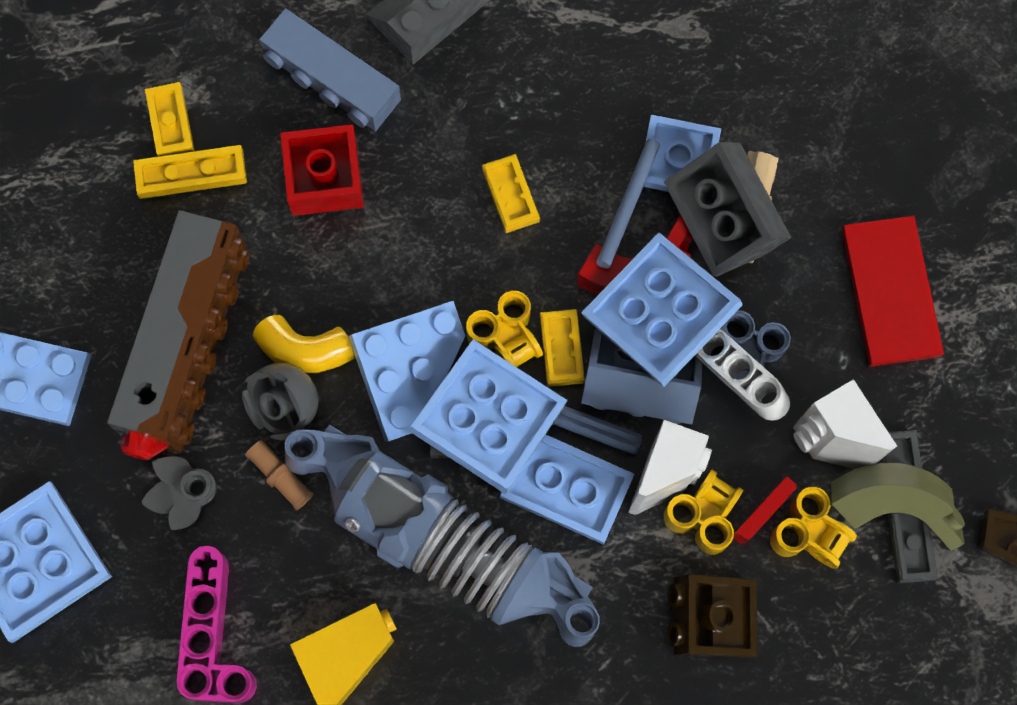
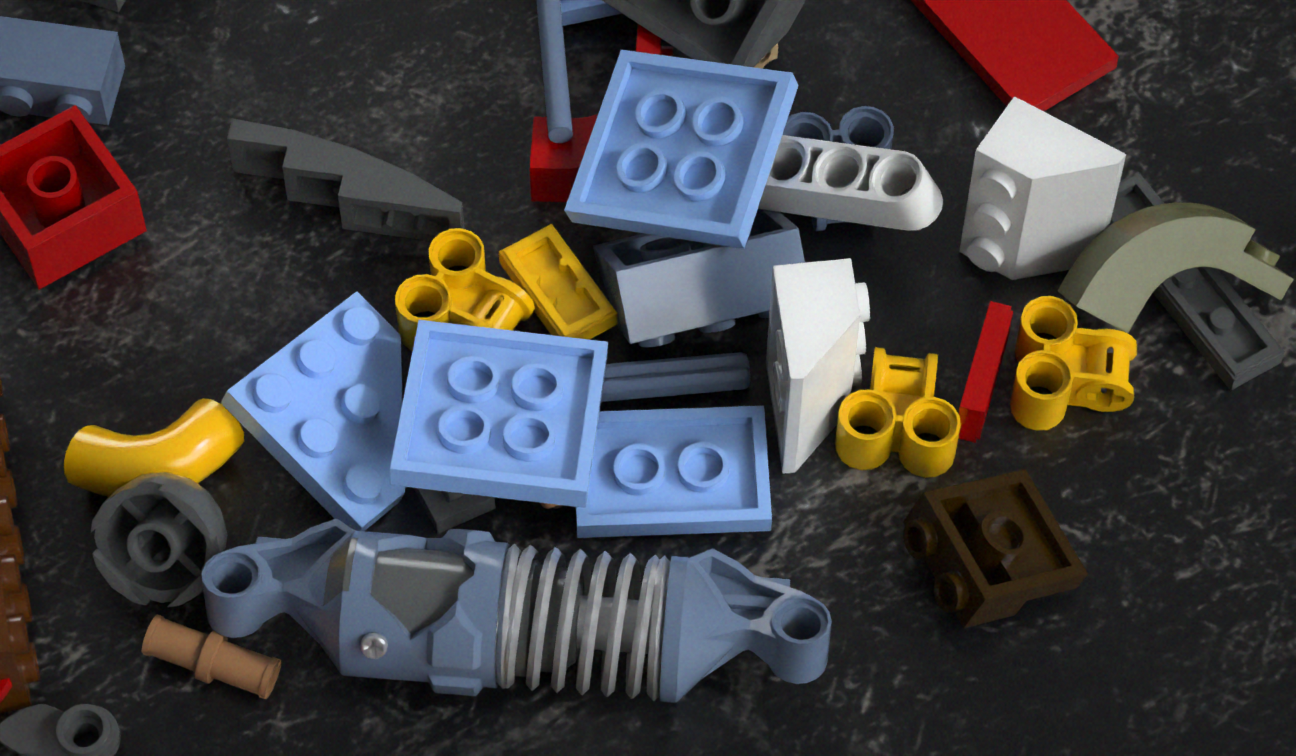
camera: 25 degrees left, 15 degrees down
(487, 240) = (366, 189): none -> dark grey slope
(510, 193) = (364, 113): yellow plate -> none

